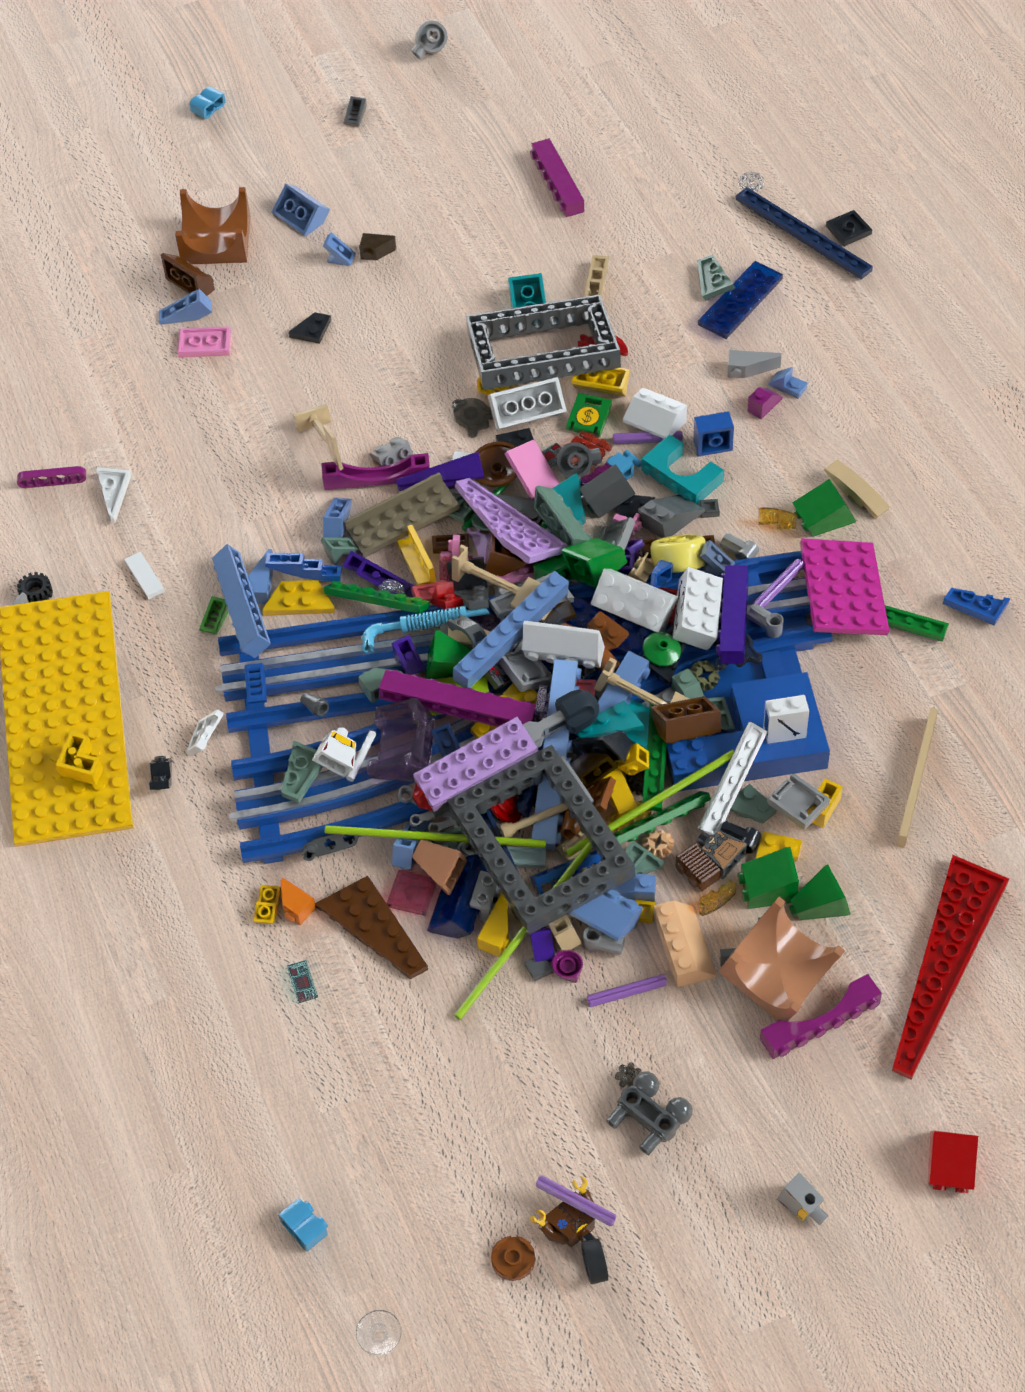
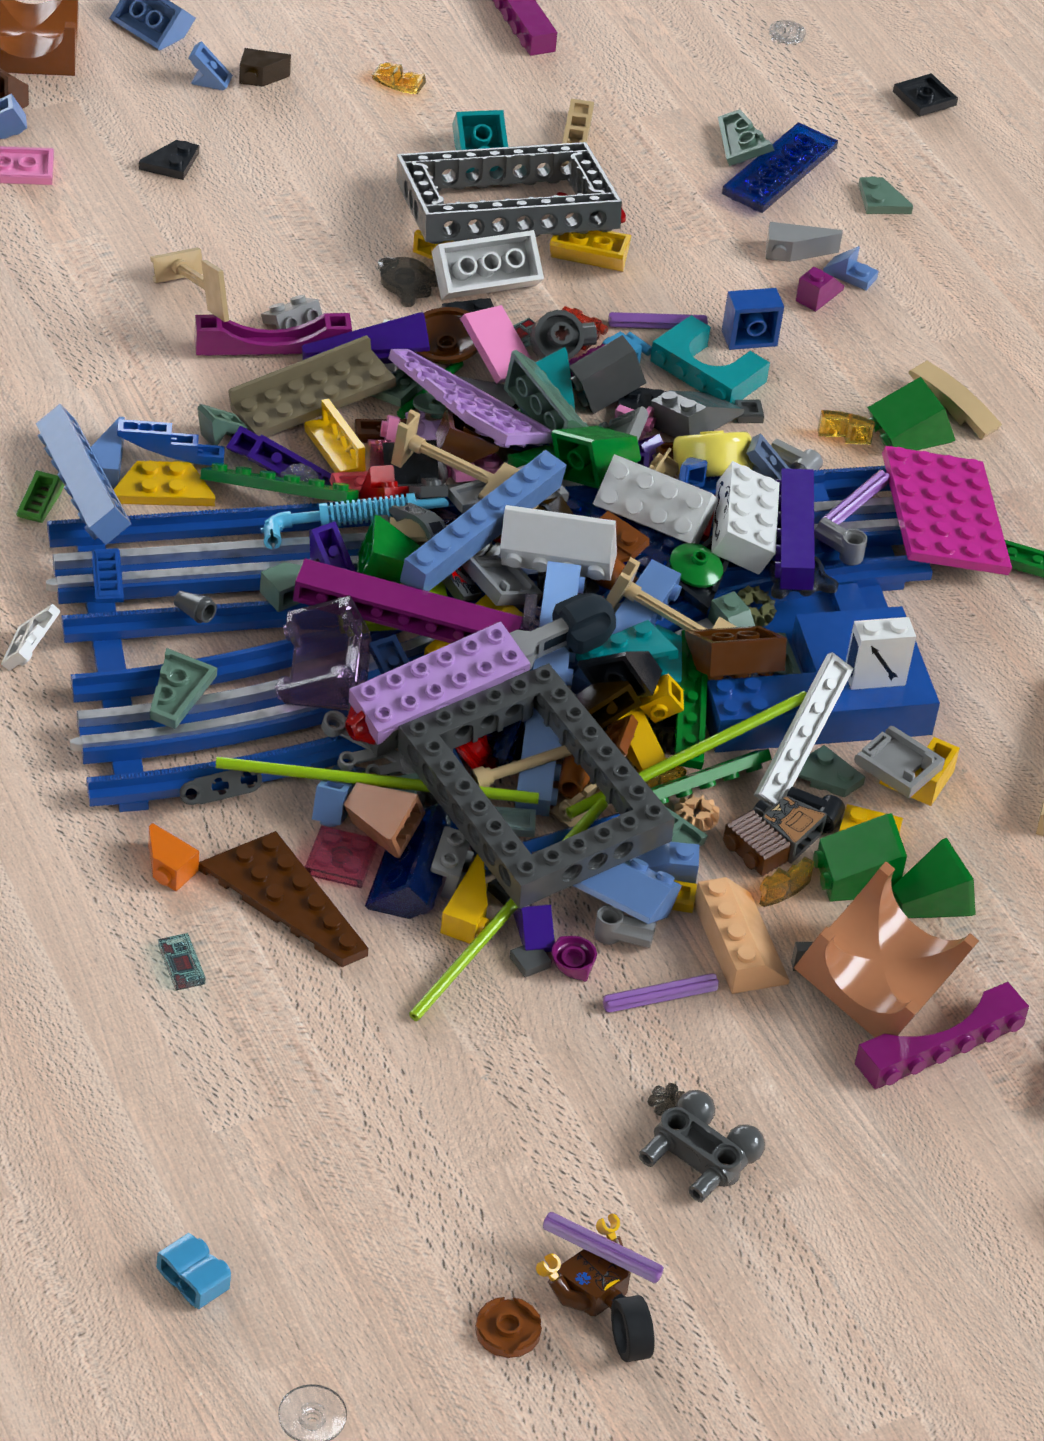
camera: 10 degrees left, 10 degrees down
(267, 904) = (127, 860): yellow slope -> none
(335, 516) = (215, 386): medium blue slope -> none
(336, 752) = (232, 665): white torso -> none
(361, 755) = (265, 675): white bar -> none
(468, 245) = (392, 76): none -> clear yellow slope
(565, 933) = (569, 912): tan slope -> none
(588, 416) = (574, 286): green container -> none
(655, 413) = (669, 289): white slope -> none
(802, 1200) = (930, 1261): light grey torso -> none
(804, 233) = (864, 96): dark blue plate -> none
(813, 318) = (882, 197): none -> sand green wing

